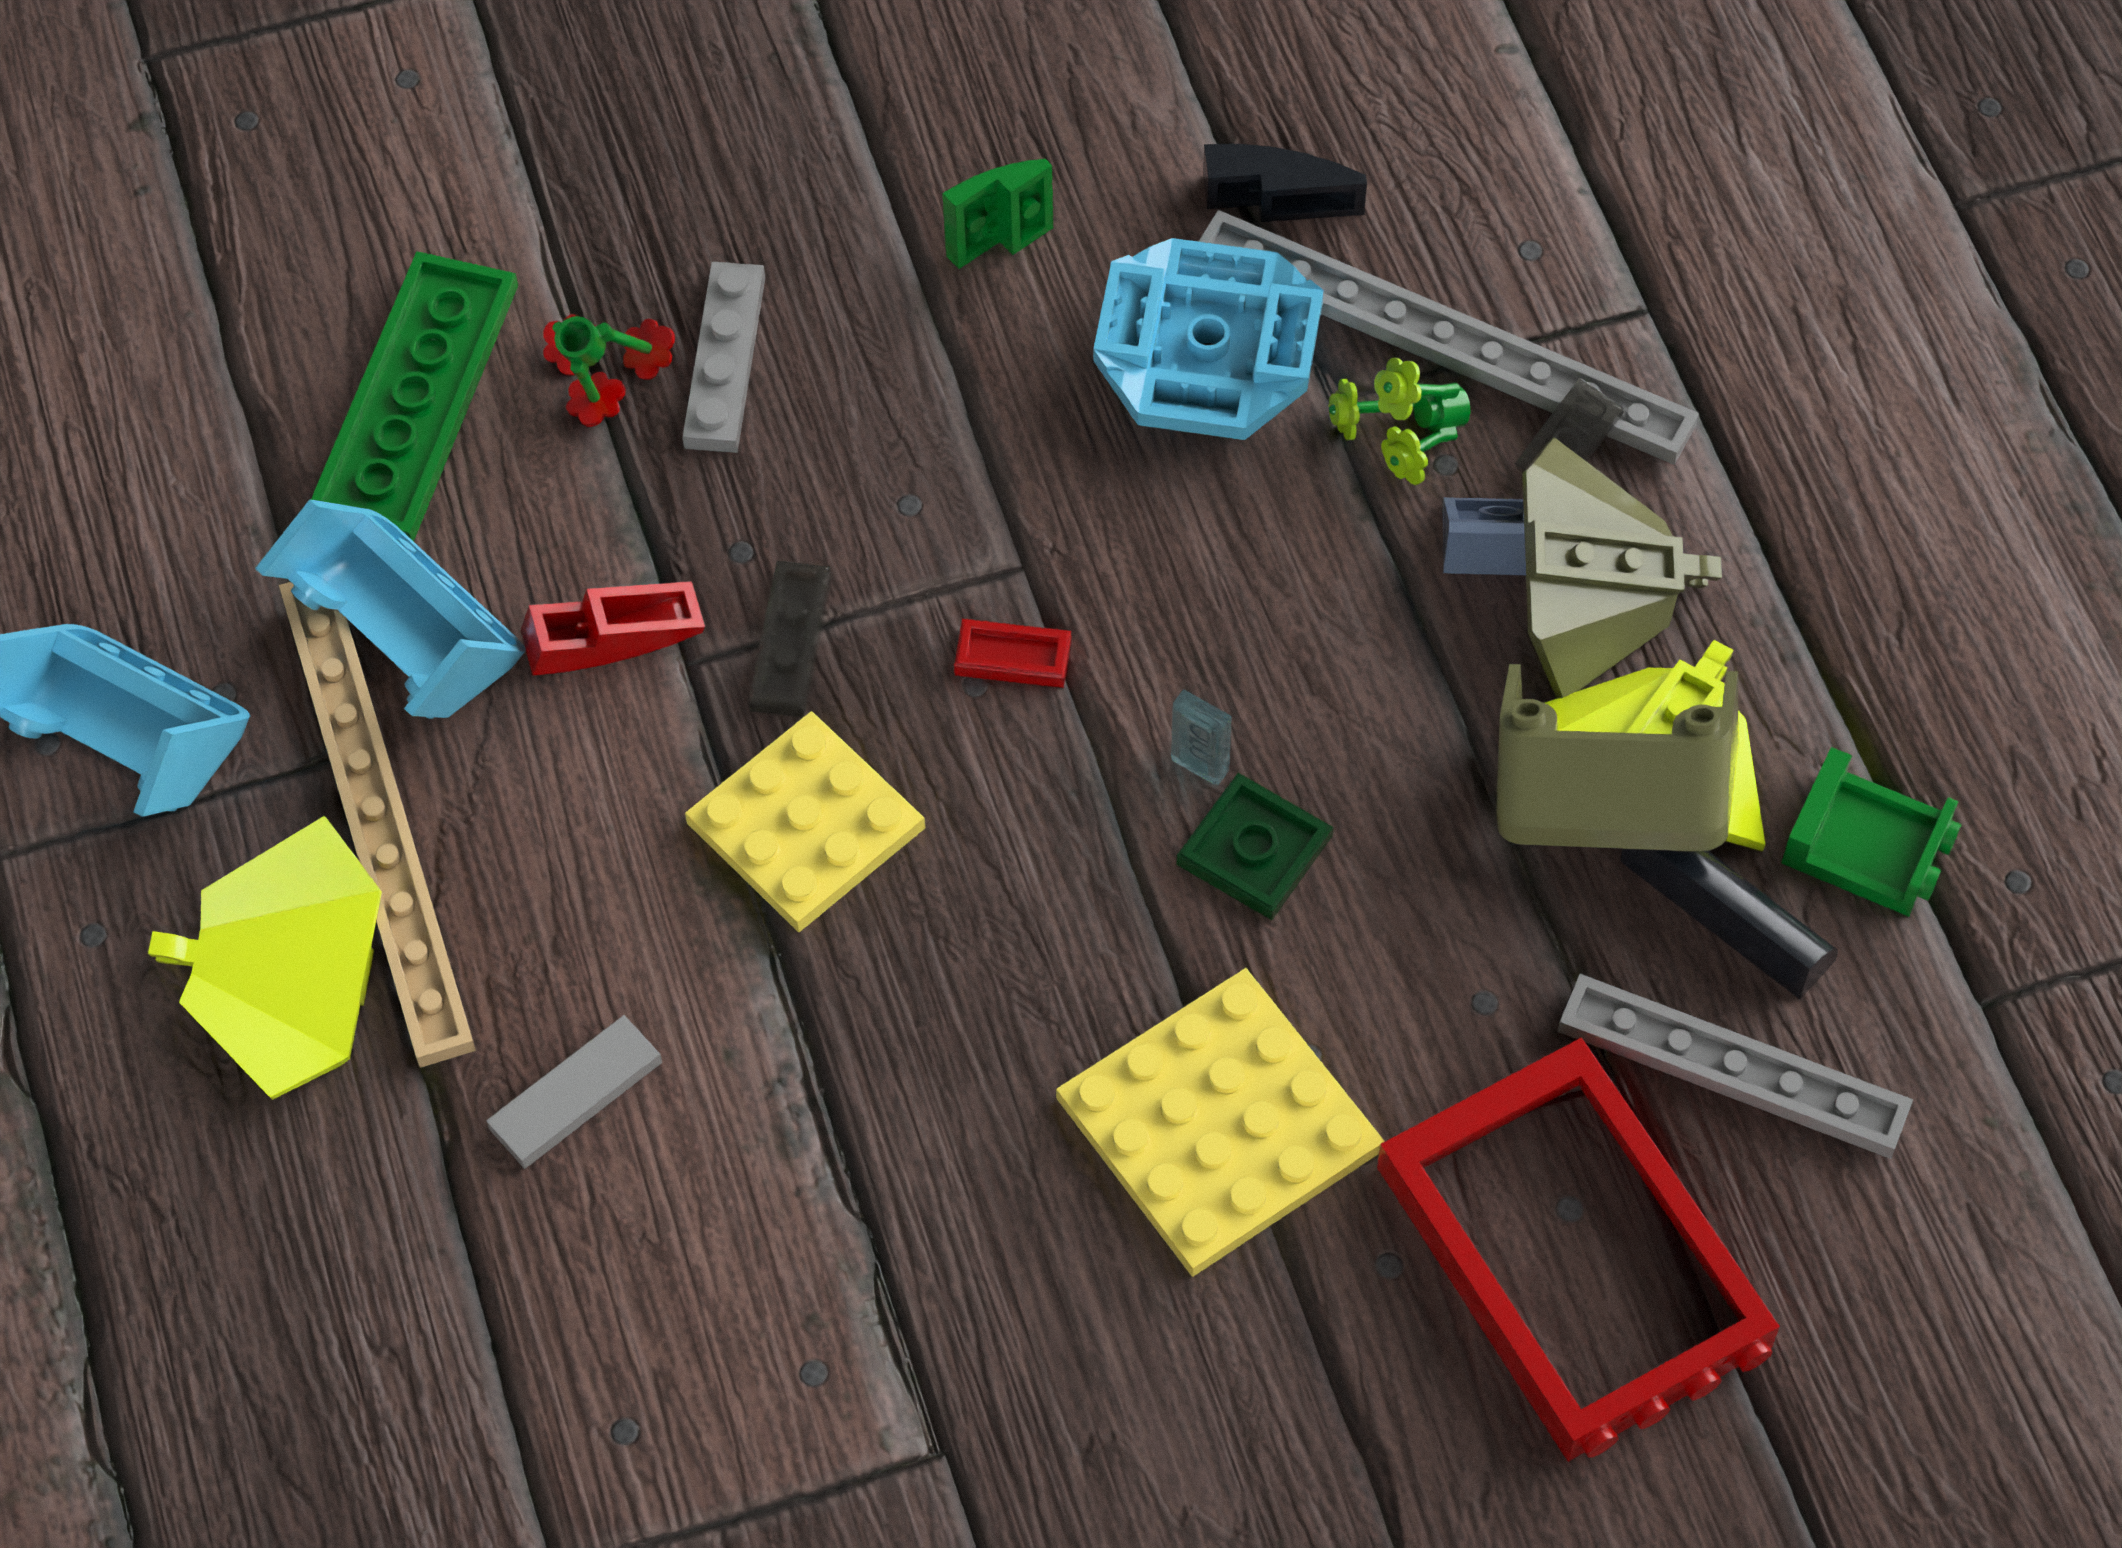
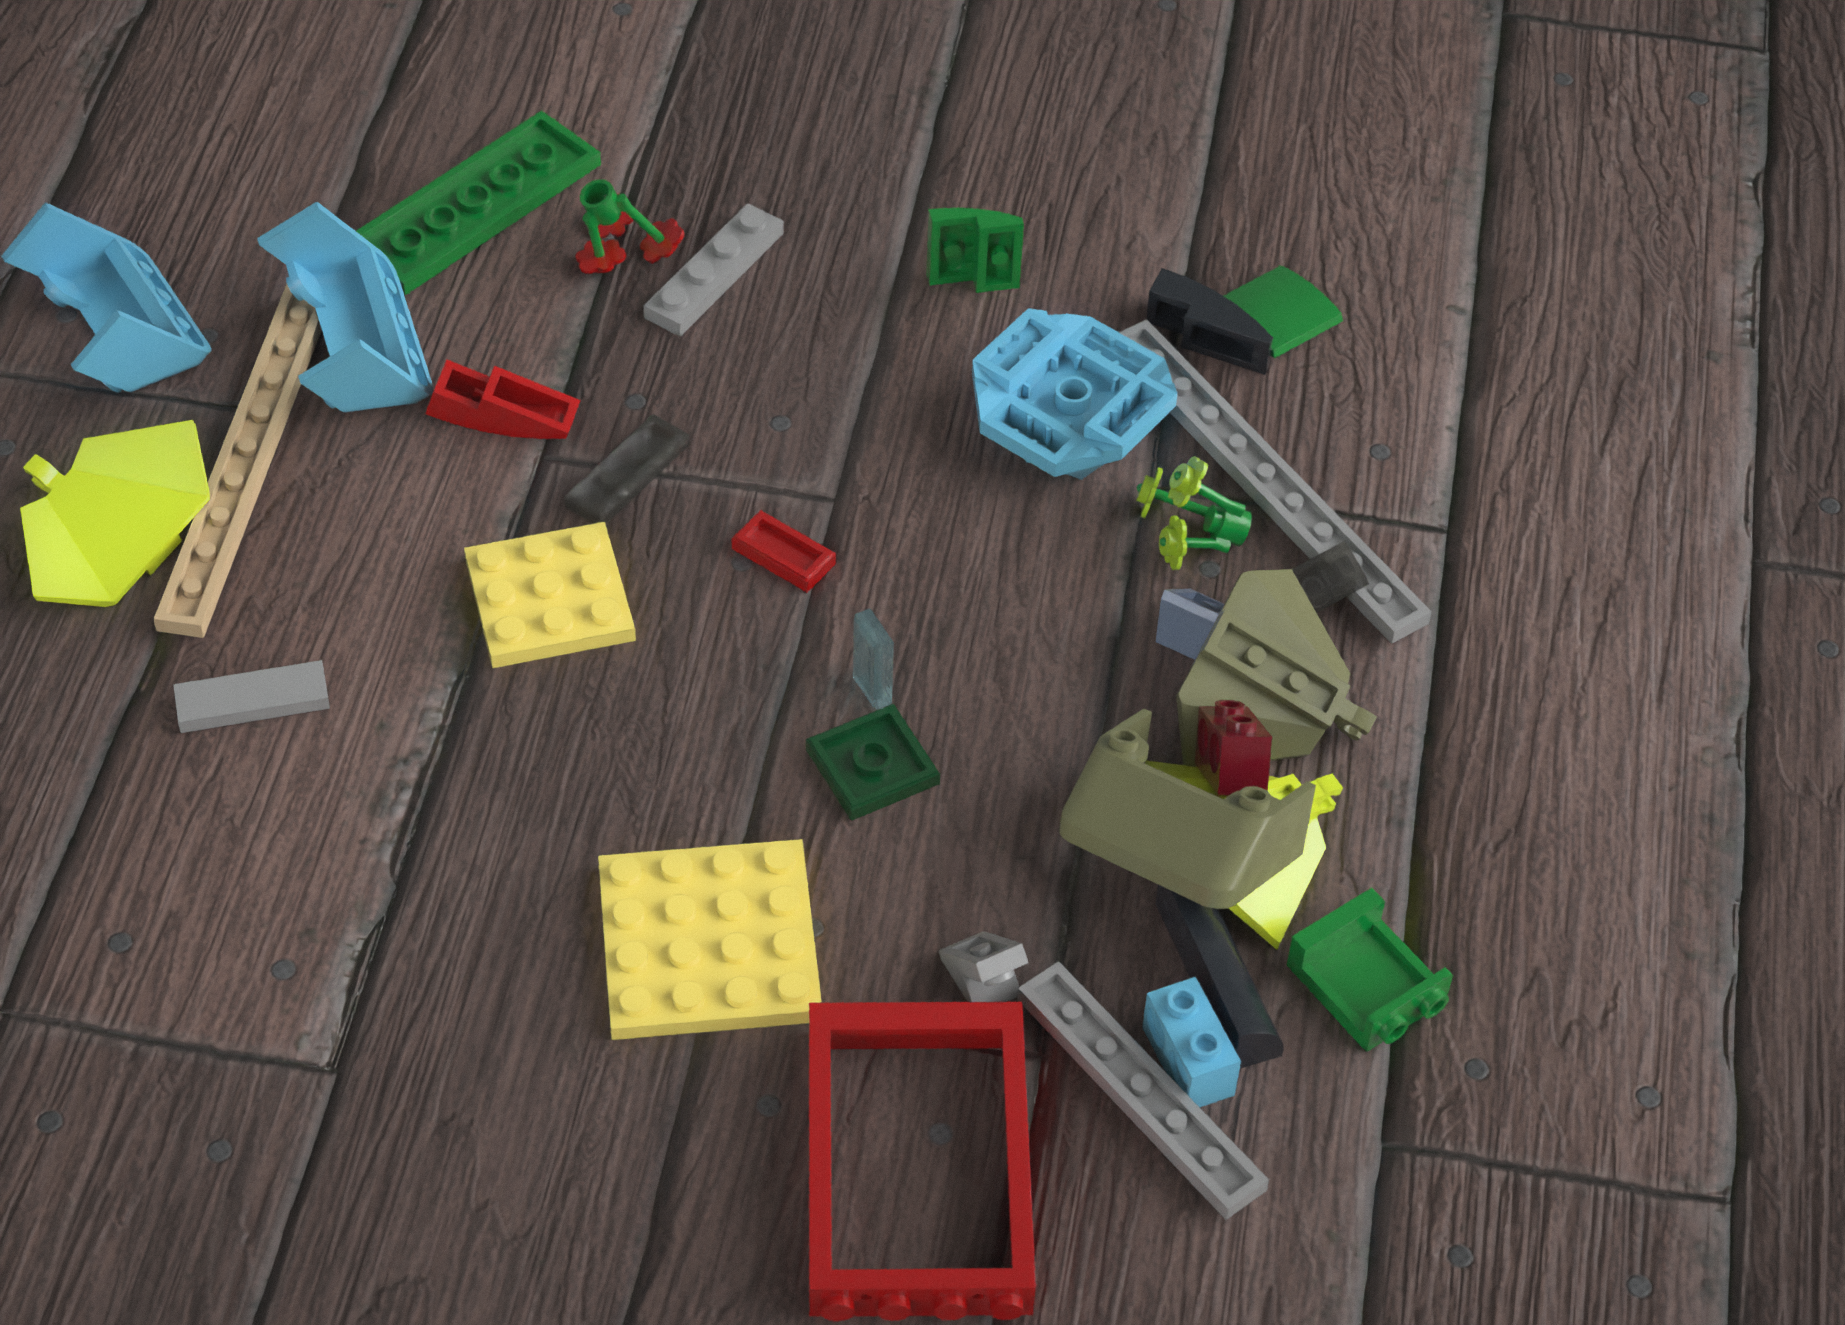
camera: 25 degrees right, 10 degrees down
(1344, 128) = (1286, 308): none -> green slope
(1509, 1013) = (985, 966): none -> light grey slope
(1619, 666) = (1232, 747): none -> dark red brick
(1756, 994) = (1191, 1042): none -> medium azure brick

